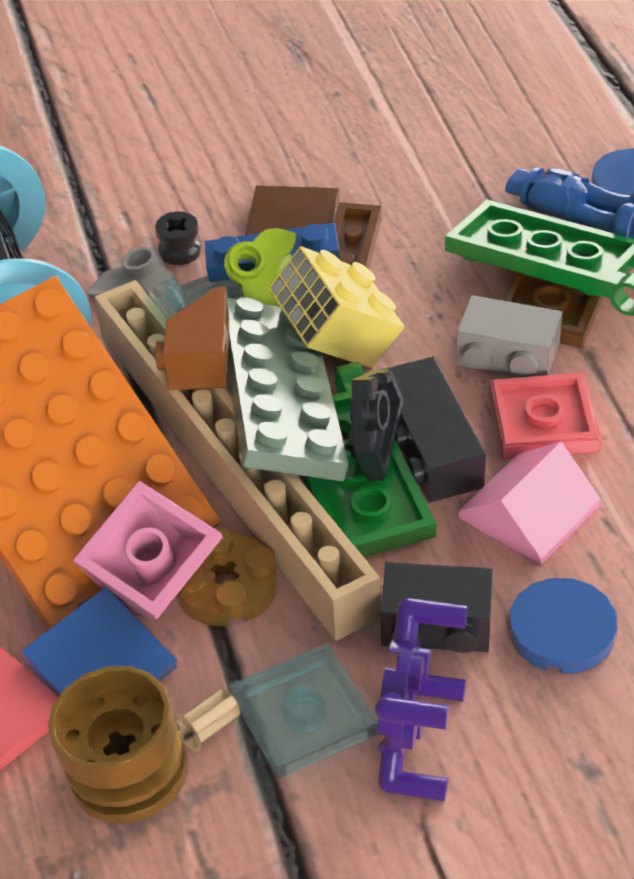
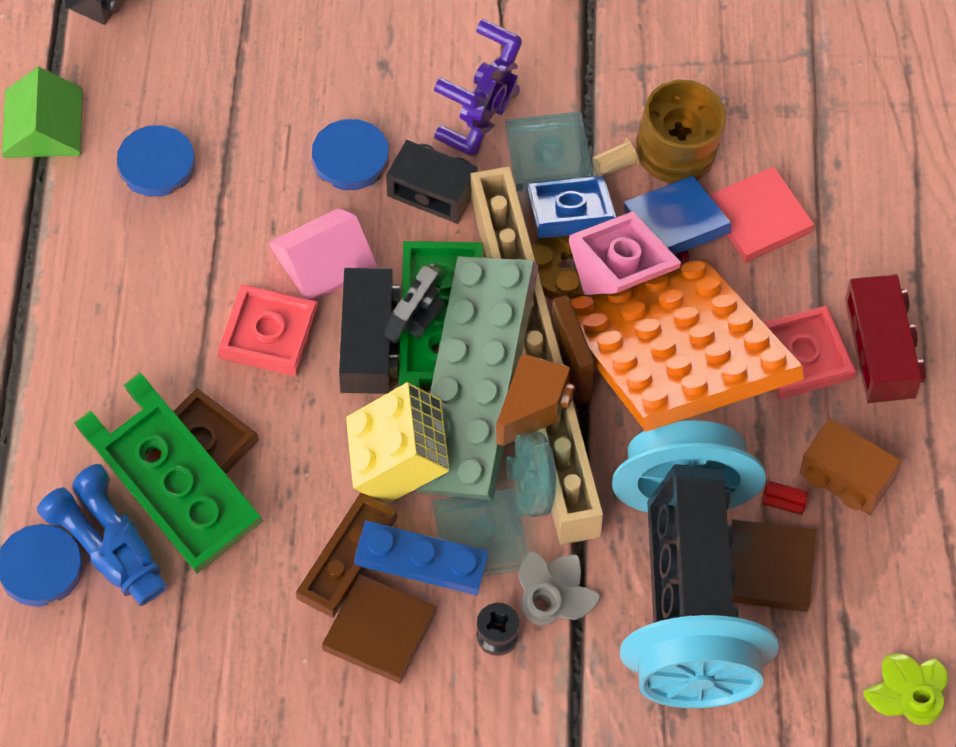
camera: 165 degrees left, 15 degrees up
(186, 437) = (573, 349): none -> reddish brown tile
(241, 623) = (569, 205): none -> blue tile
(269, 254) = (445, 521): lime plate -> none
(508, 337) = (261, 397): light grey brick -> none

